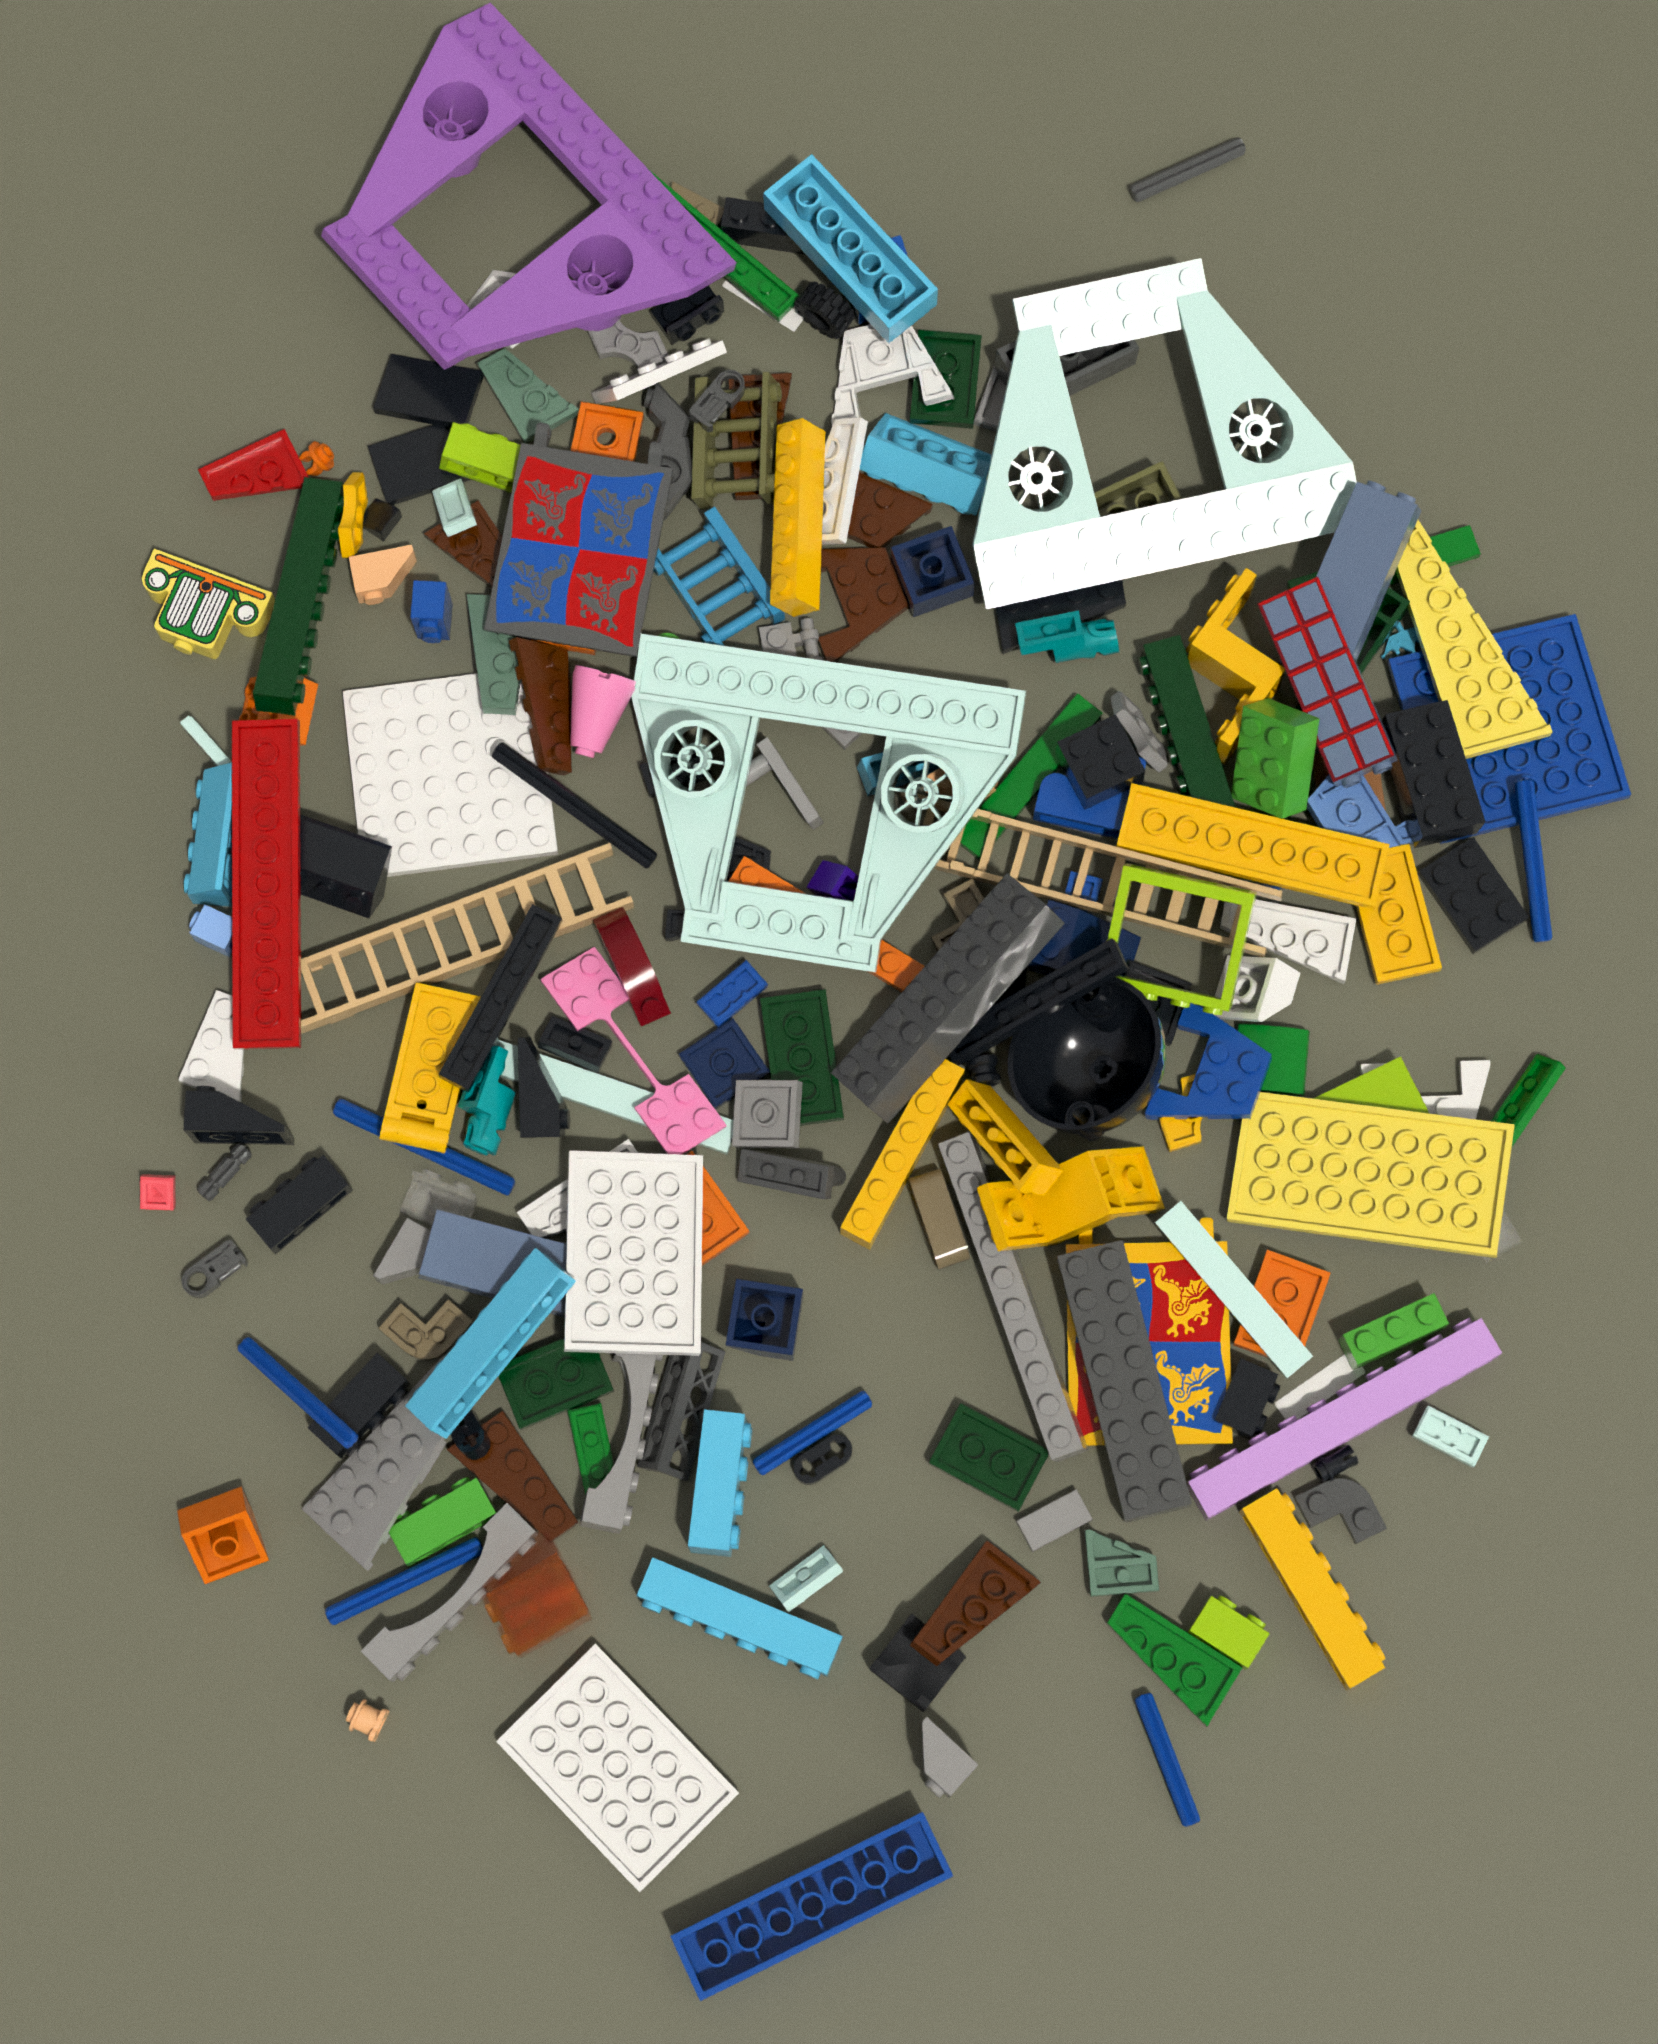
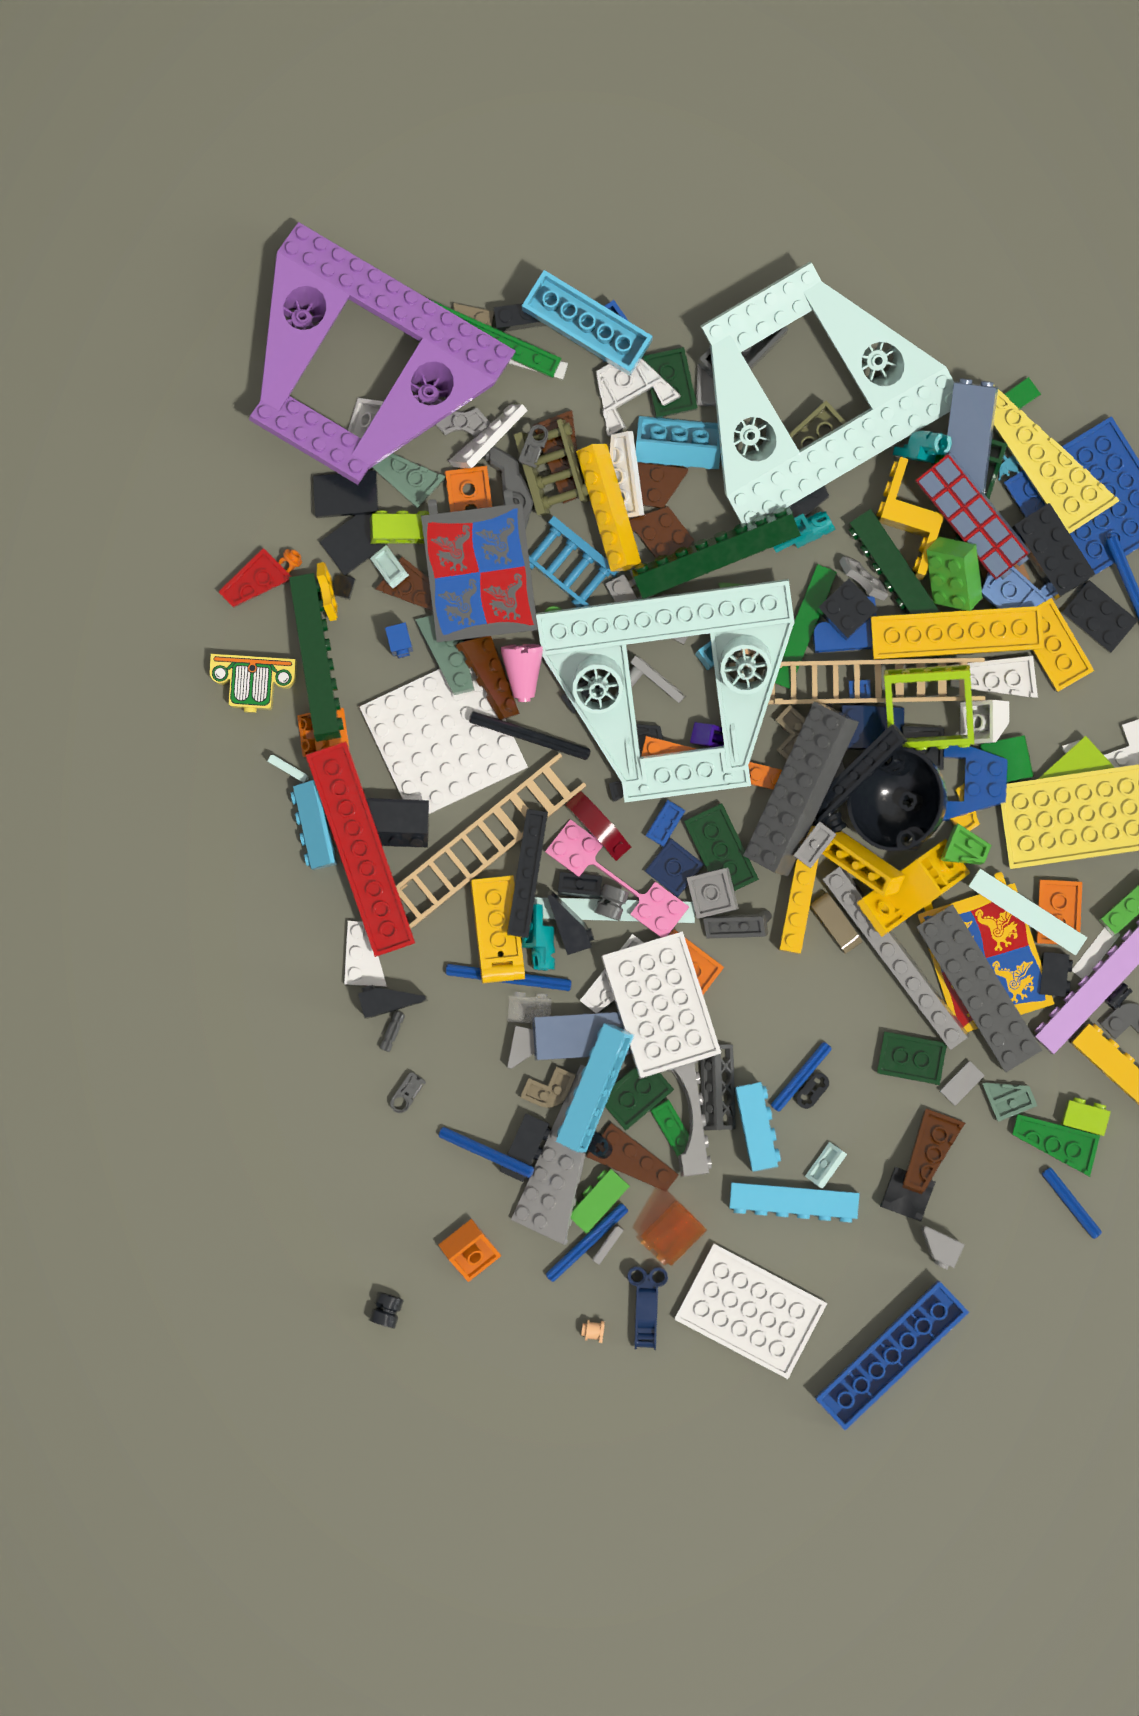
camera: 15 degrees left, 10 degrees up
(64, 1585) = (386, 1310): none -> black wheel
(157, 1192) = (356, 1057): coral tile -> none
(212, 930) = (334, 884): light blue brick -> none
(298, 1203) = (444, 1036): black brick -> none
(380, 573) = (356, 623): light nougat slope -> none
(398, 1649) = (596, 1285): light grey arch -> none
(433, 1594) = (607, 1245): none -> light grey tile
(460, 1708) = (646, 1306): none -> dark blue piece
(611, 1080) = (611, 902): none -> dark grey wheel
(683, 316) = (491, 397): black bracket -> none
(765, 1319) = (751, 1019): dark blue slope -> none
(824, 310) = (580, 362): black tyre -> none
(932, 571) = (703, 514): dark blue brick -> none
(932, 623) = (715, 552): none -> dark green brick
(941, 1086) = (814, 845): none -> light grey plate
(1168, 1166) = (965, 847): none -> bright green wing
(1187, 169) = (780, 191): dark grey axle -> none
(1286, 566) = (924, 446): none -> teal plate

